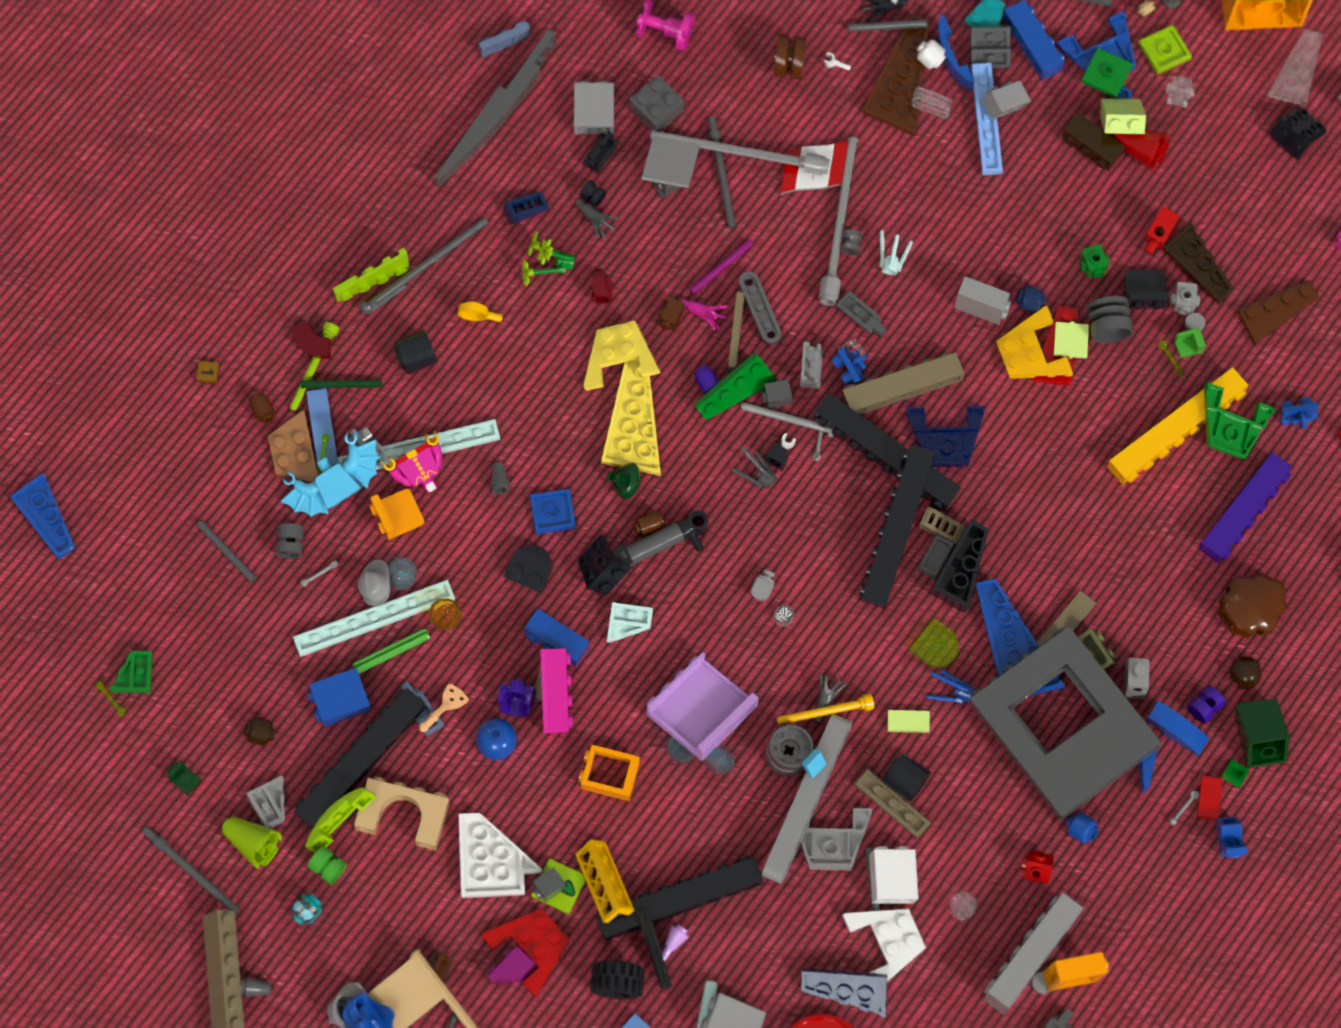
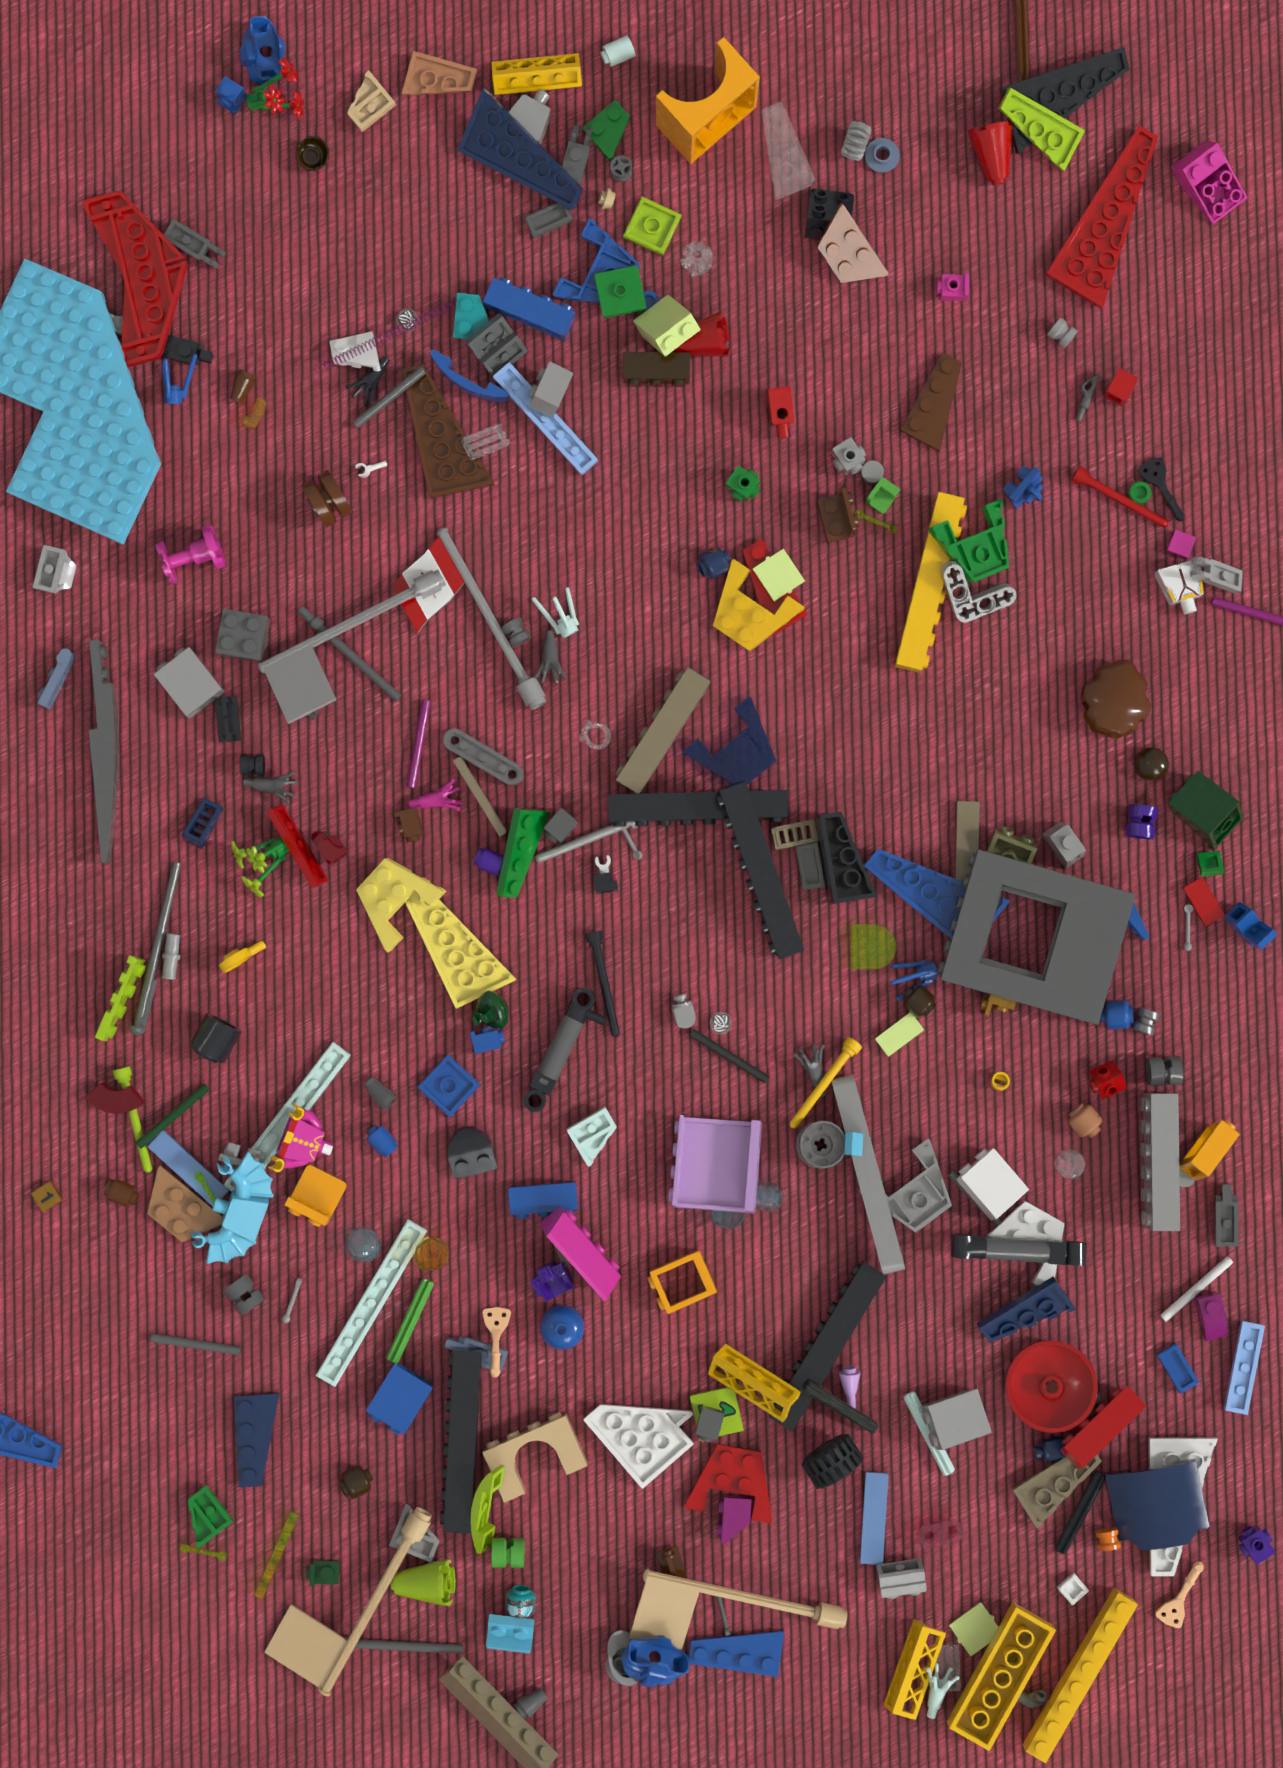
camera: 30 degrees left, 15 degrees up
(133, 828) = (317, 1650): none -> tan flag
(160, 740) = (277, 1553): none -> clear neon green bar
(219, 638) = (254, 1428): none -> dark blue wing
(281, 923) = (510, 1633): none -> medium azure bracket
(375, 583) = (348, 1273): light grey piece -> none
(429, 277) = (171, 956): none -> light grey pin
(474, 511) = (381, 1140): none -> blue brick
(579, 270) = (297, 846): none -> red tile
(600, 568) = (530, 1109): black bracket -> none
(605, 499) = (487, 1040): none -> blue brick
(648, 523) = (541, 1032): reddish brown brick -> none
(739, 489) = (594, 940): none -> black piece
(766, 476) = (609, 910): dark grey plant -> none
(771, 643) = (726, 1054): none -> pearl dark grey bar
(811, 366) = (570, 776): light grey hinge -> none
(845, 357) = (606, 747): blue hips -> none
(861, 277) = (550, 659): none -> dark grey piece
(861, 314) = (575, 693): dark grey hinge -> none
(892, 804) = (940, 1118): dark tan tile -> none
(900, 955) = (1016, 1249): none -> piece
(906, 776) = (937, 1089): black piece -> none
(930, 54) = (450, 397): white head -> none
(941, 707) = (919, 1001): none -> dark brown head
(959, 807) = (1000, 1077): none -> yellow hinge
(983, 301) = (675, 599): light grey brick -> none
(998, 884) = (1085, 1120): none -> nougat head
(1001, 753) = (1000, 1004): none -> pearl gold bracket
(1086, 893) = (1165, 1070): none -> dark grey wheel
(1100, 848) = (1145, 1023): none -> flat silver wheel
(1110, 319) = (799, 530): dark grey wheel -> none
(1146, 289) = (807, 474): black bracket -> none
(1146, 334) = (837, 516): none -> reddish brown bracket
(1177, 728) = (1132, 862): blue slope -> none
(1192, 256) = (828, 411): dark brown wing -> none
(1194, 456) = (966, 599): none -> light grey beam
(1245, 507) = (1043, 613): dark purple brick -> none
(1294, 161) = (849, 250): none -> wing

